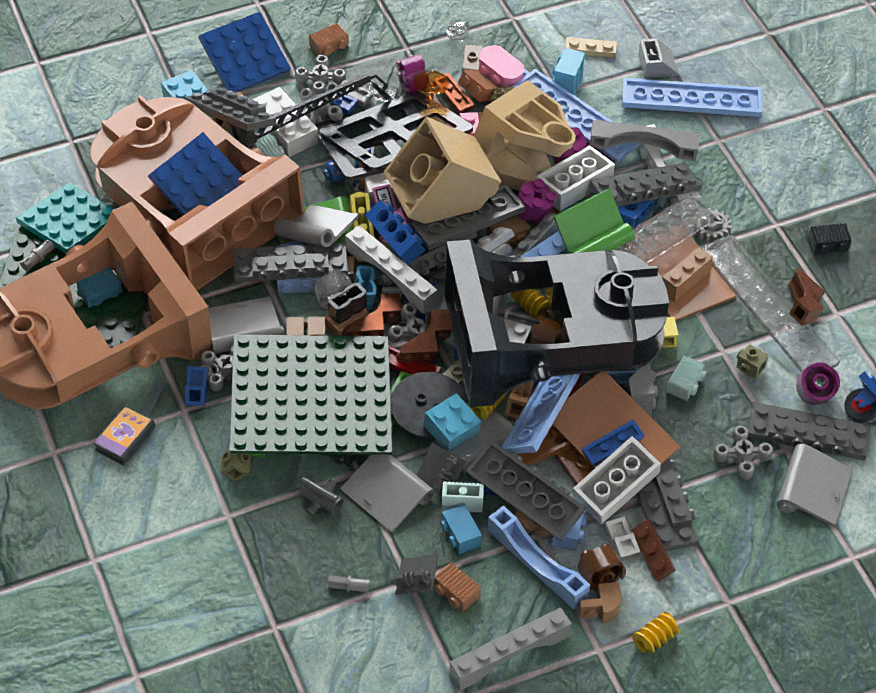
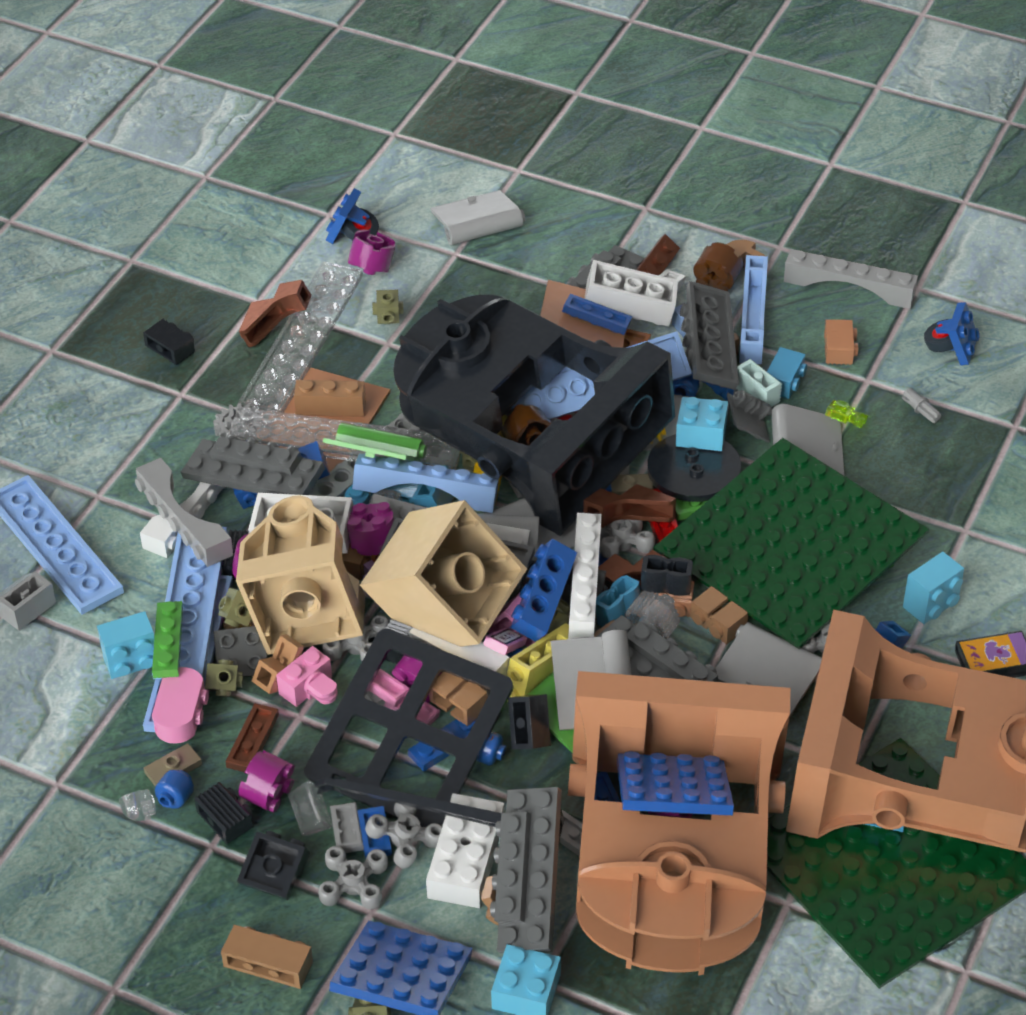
camera: 130 degrees left, 5 degrees down
(37, 255) = (908, 905): light grey pin -> none
(66, 217) = (827, 931): plate -> none
(196, 436) = (933, 588): none -> medium azure brick
(235, 465) = (922, 551): olive brick -> none
(312, 21) = (267, 956): none -> medium nougat brick
(321, 496) = (871, 472): dark grey pin -> none
(325, 186) = (529, 721): none -> black brick
(328, 40) = (283, 916): nougat brick -> none
(362, 54) = (273, 864): none -> black plate
(382, 654) = (954, 334): none -> blue plate
(388, 127) = (381, 723): window -> none
(391, 531) = (843, 412): none -> clear neon green plate
(415, 574) = (861, 368): dark grey hinge -> none
(425, 50) = (224, 812): none -> black brick
(431, 83) = (273, 736): clear orange shield -> none
(452, 45) = (174, 789): none -> blue head
(477, 85) = (223, 715): nougat brick -> none
(548, 80) = (167, 639): none -> bright green plate
(592, 47) = (46, 677): tan plate -> none
(655, 632) = (730, 215): yellow piece -> none
(743, 452) = (494, 265): light grey gear -> none
(818, 431) = (423, 248): dark grey plate -> none

